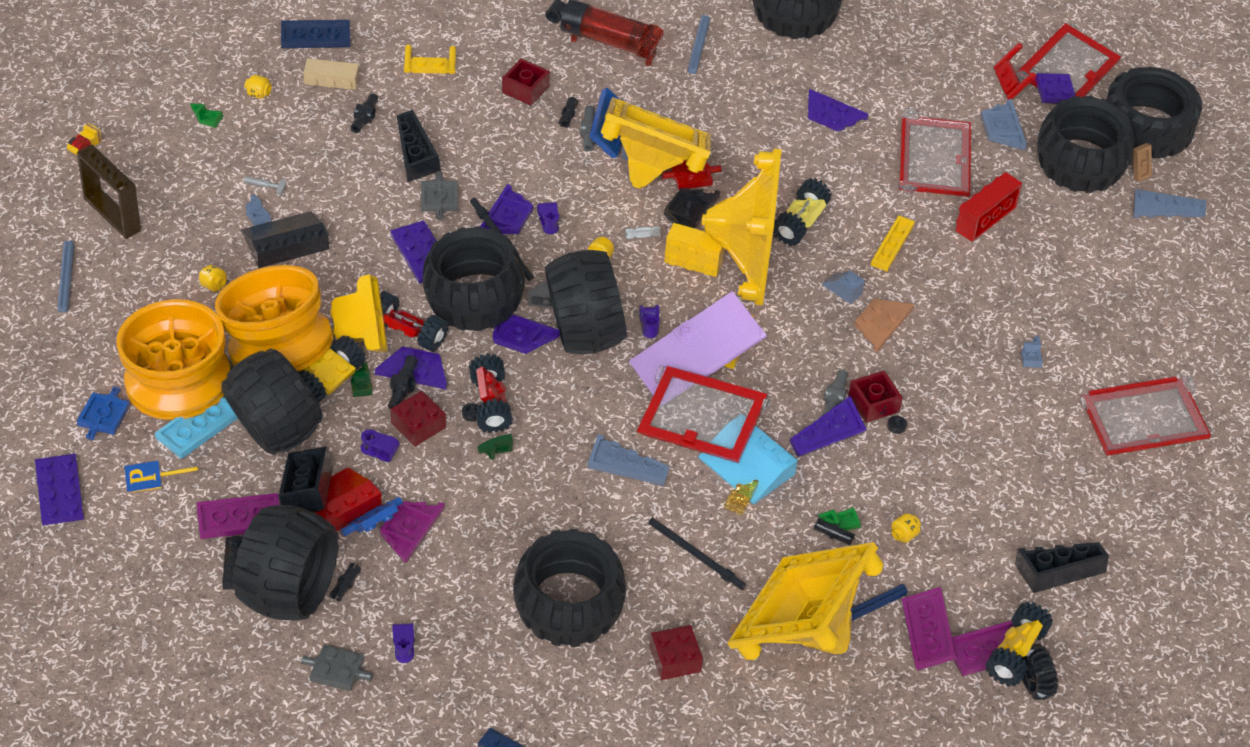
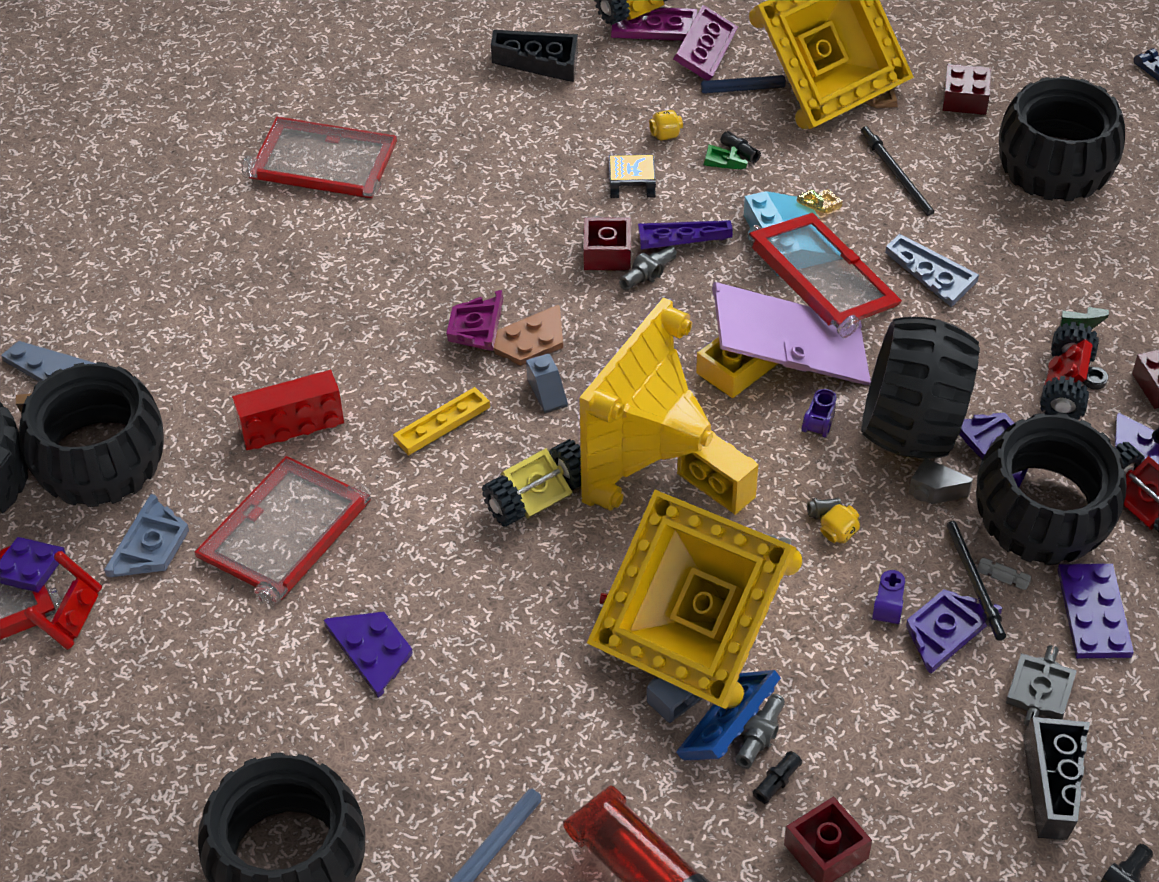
camera: 150 degrees left, 0 degrees up
(618, 260) = (817, 507): none -> dark grey pin
(903, 482) = (632, 171): none -> flag
(922, 311) = (476, 322): none -> magenta wing
(1031, 353) = (385, 251): sand blue slope -> none

